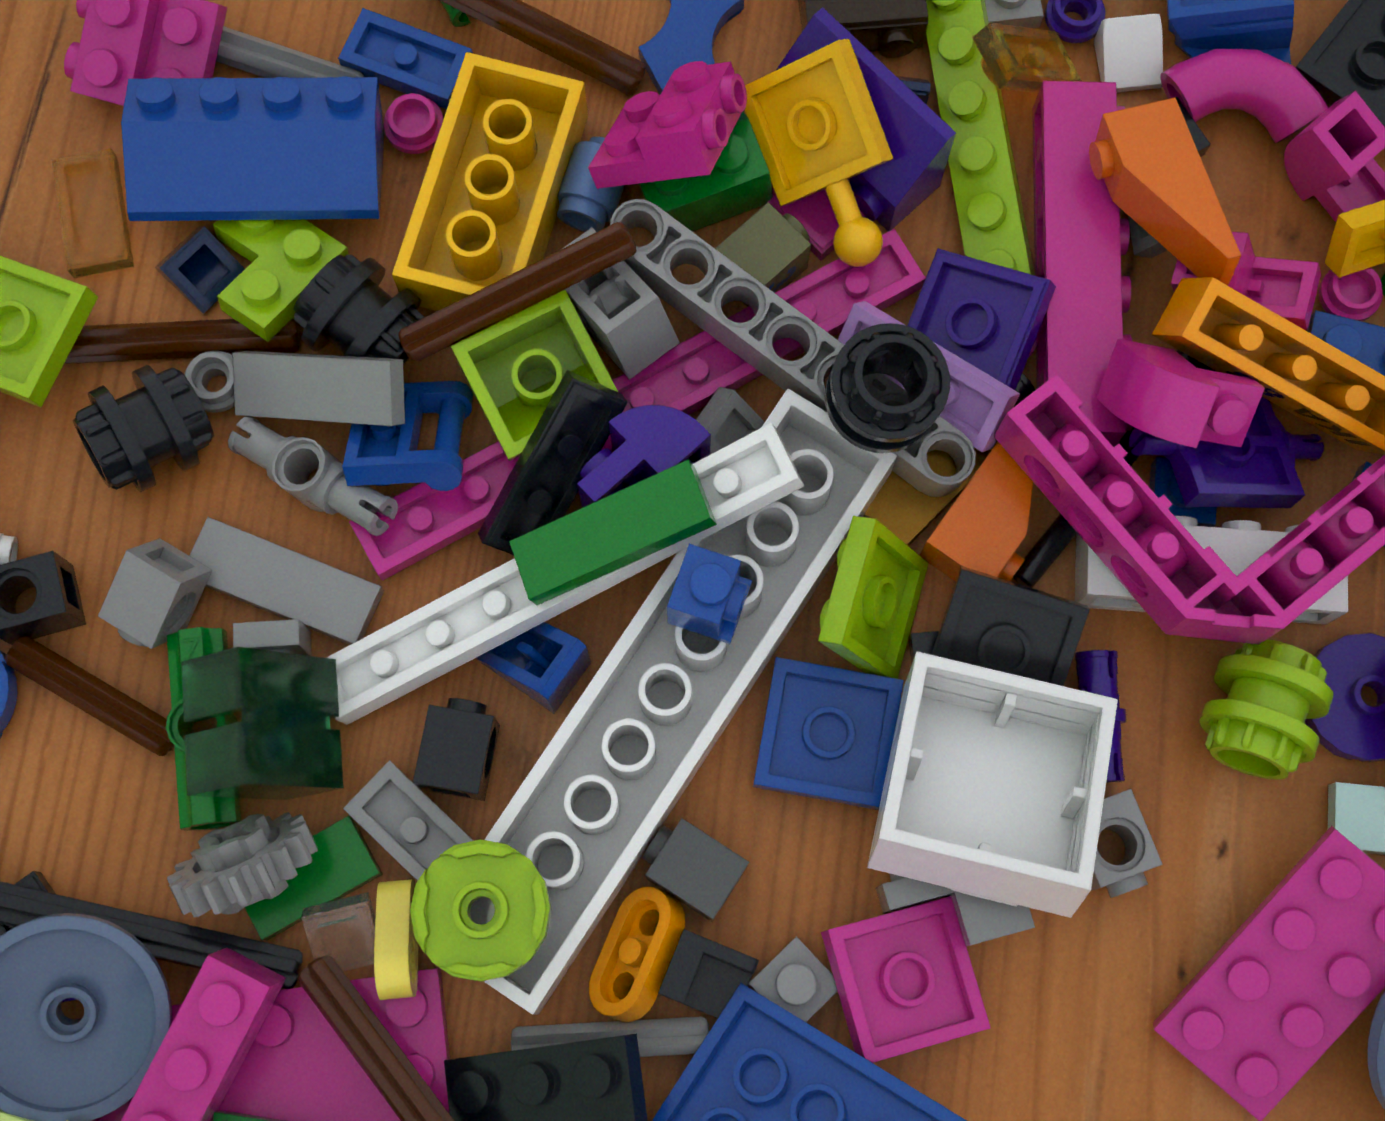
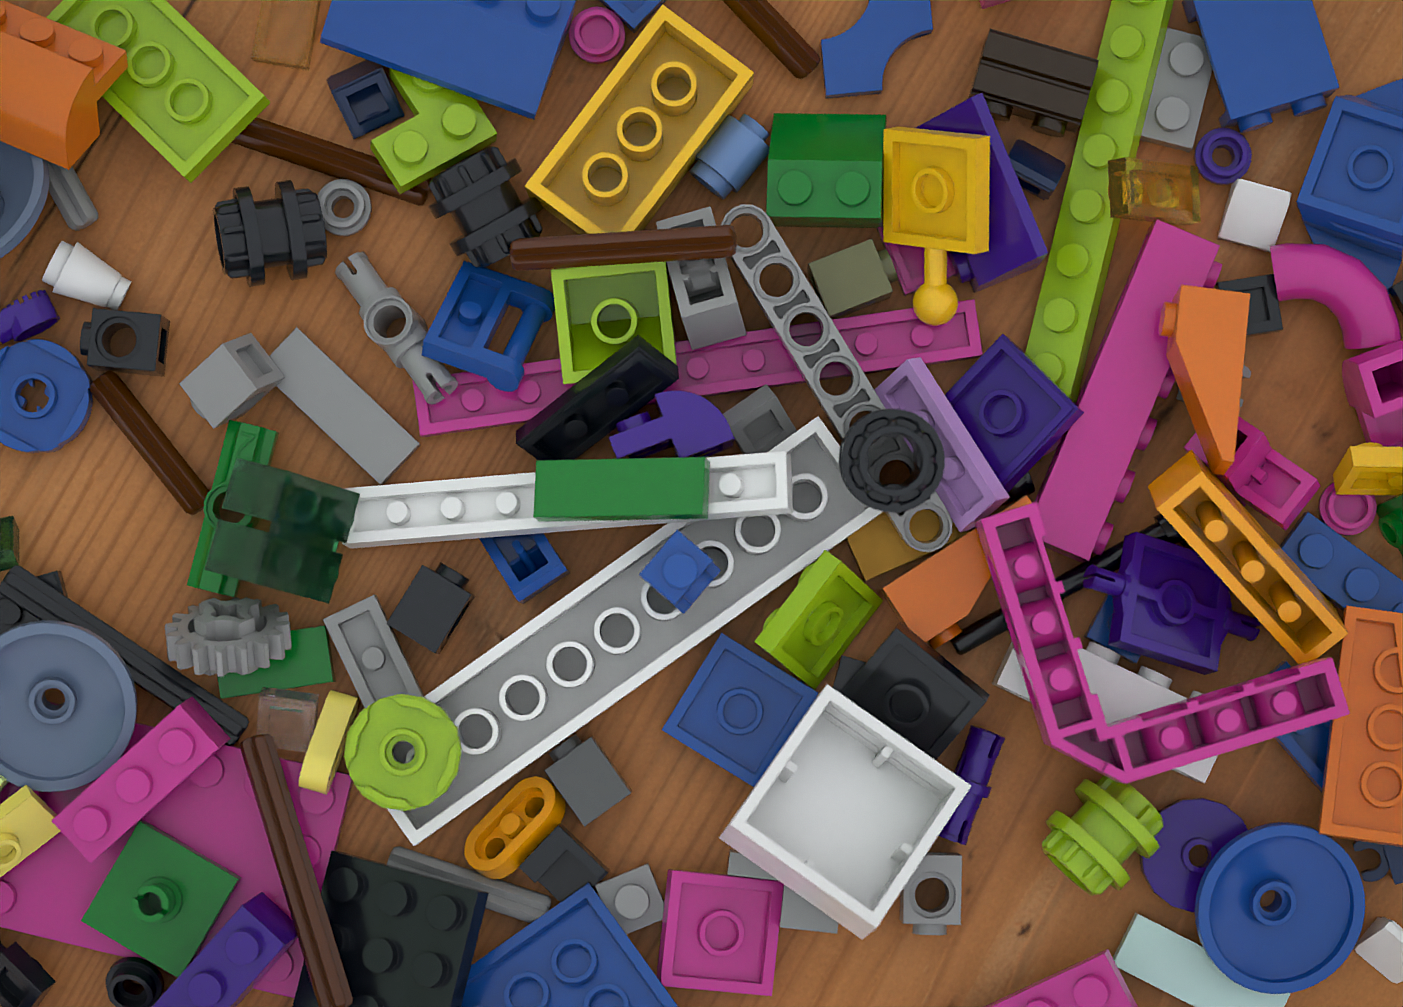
camera: 20 degrees right, 10 degrees up
(277, 635) = (312, 458): light grey plate -> none
(319, 387) = (428, 258): light grey tile -> none
(673, 131) = (810, 148): dark pink plate -> none
(1174, 399) = (1128, 558): dark pink brick -> none

